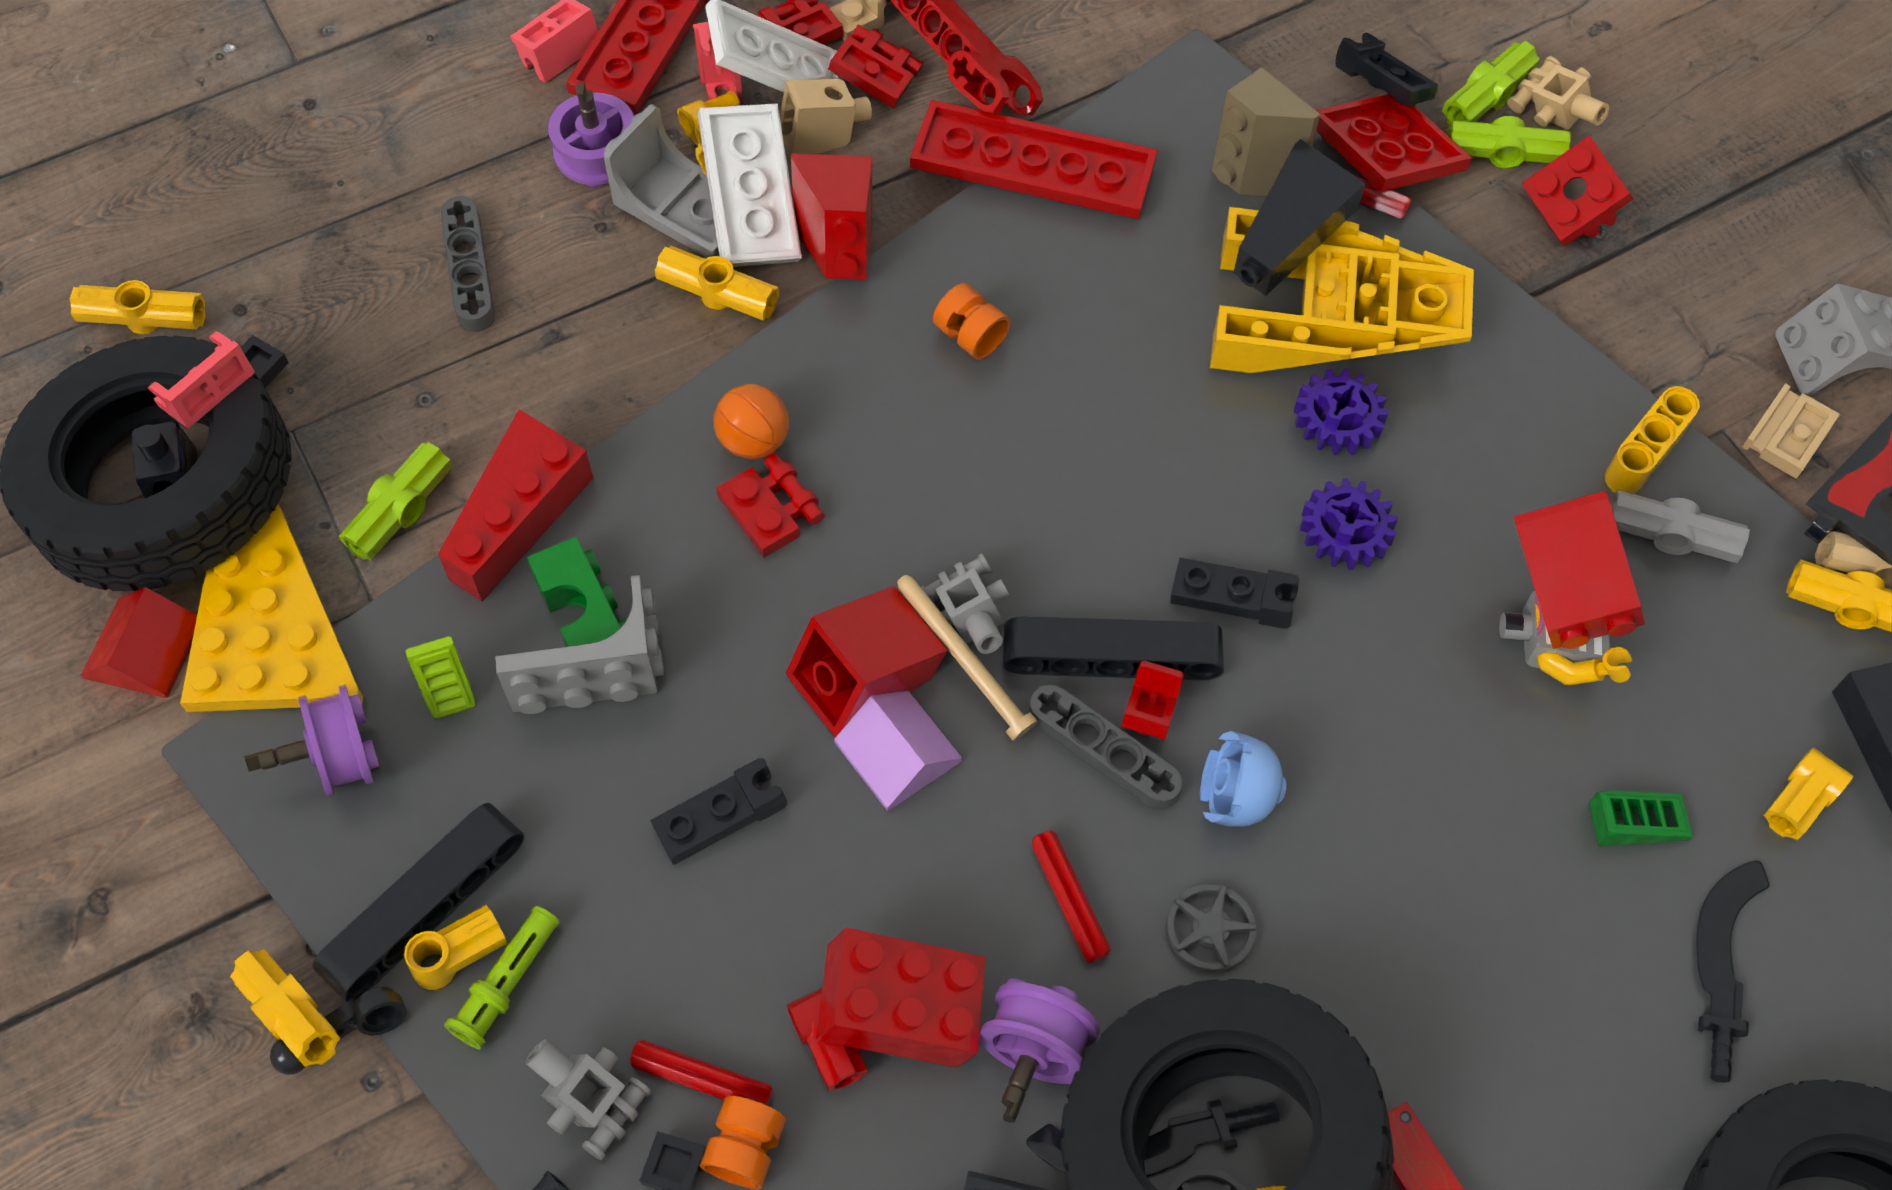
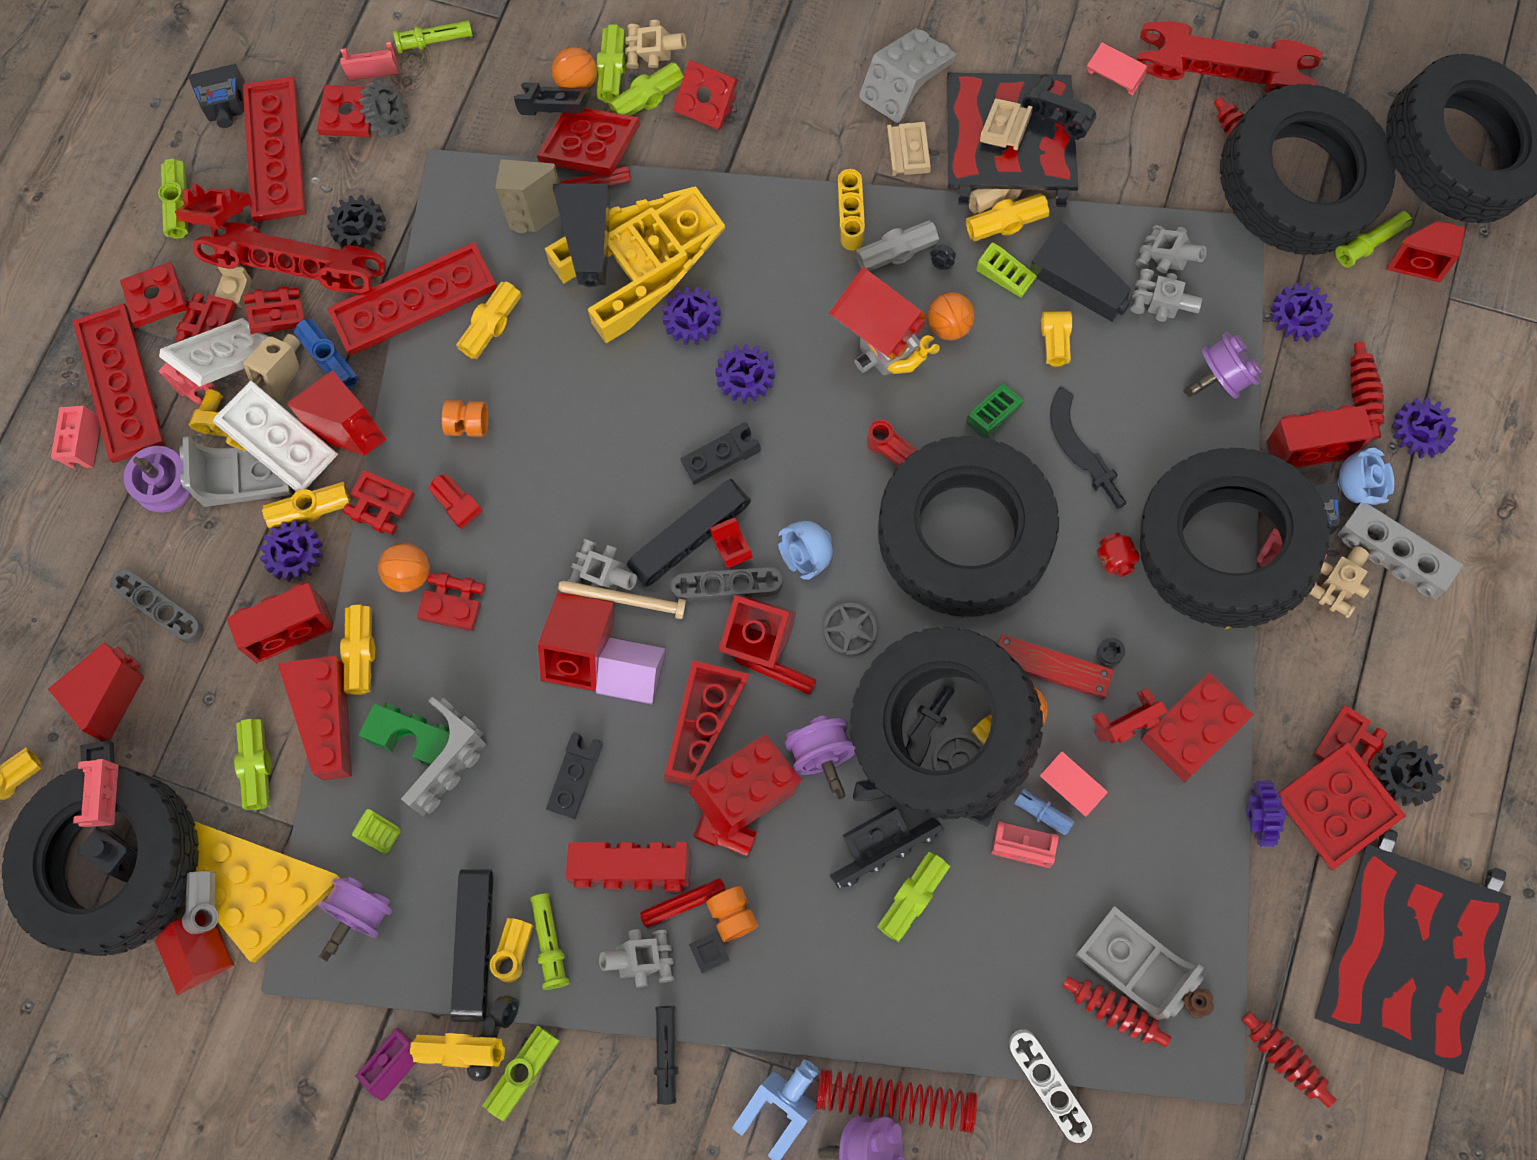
camera: 35 degrees left, 10 degrees up
(198, 588) = (201, 898): none -> light grey piece
(200, 957) = (387, 1065): none -> magenta slope
(297, 1109) = (508, 1089): none -> lime piece
(322, 294) = (99, 690): none -> red slope
(567, 375) = (280, 623): none -> red brick
(619, 470) = (357, 649): none -> yellow piece
(637, 325) = (289, 562): none -> dark purple gear
(680, 973) = (629, 865): none -> red wedge
(804, 330) = (382, 494): none -> red plate
(876, 408) = (458, 505): none -> red piece
(886, 147) = (318, 345): none -> blue piece
(927, 872) = (703, 714): none -> red wedge
(1048, 43) = (356, 222): none -> black gear
(1089, 827) = (756, 631): none -> red slope
(1097, 242) = (489, 320): none -> yellow piece
(1442, 56) = (574, 68): none -> orange piece
(1463, 752) = (893, 447): none -> red piece
(1550, 854) = (978, 465): none -> black tyre
(1660, 1136) = (1117, 554): none -> red head
(1678, 656) = (950, 316): none -> orange piece
(1728, 583) = (943, 257): none -> black plate
(1811, 641) = (1003, 258): none -> lime slope

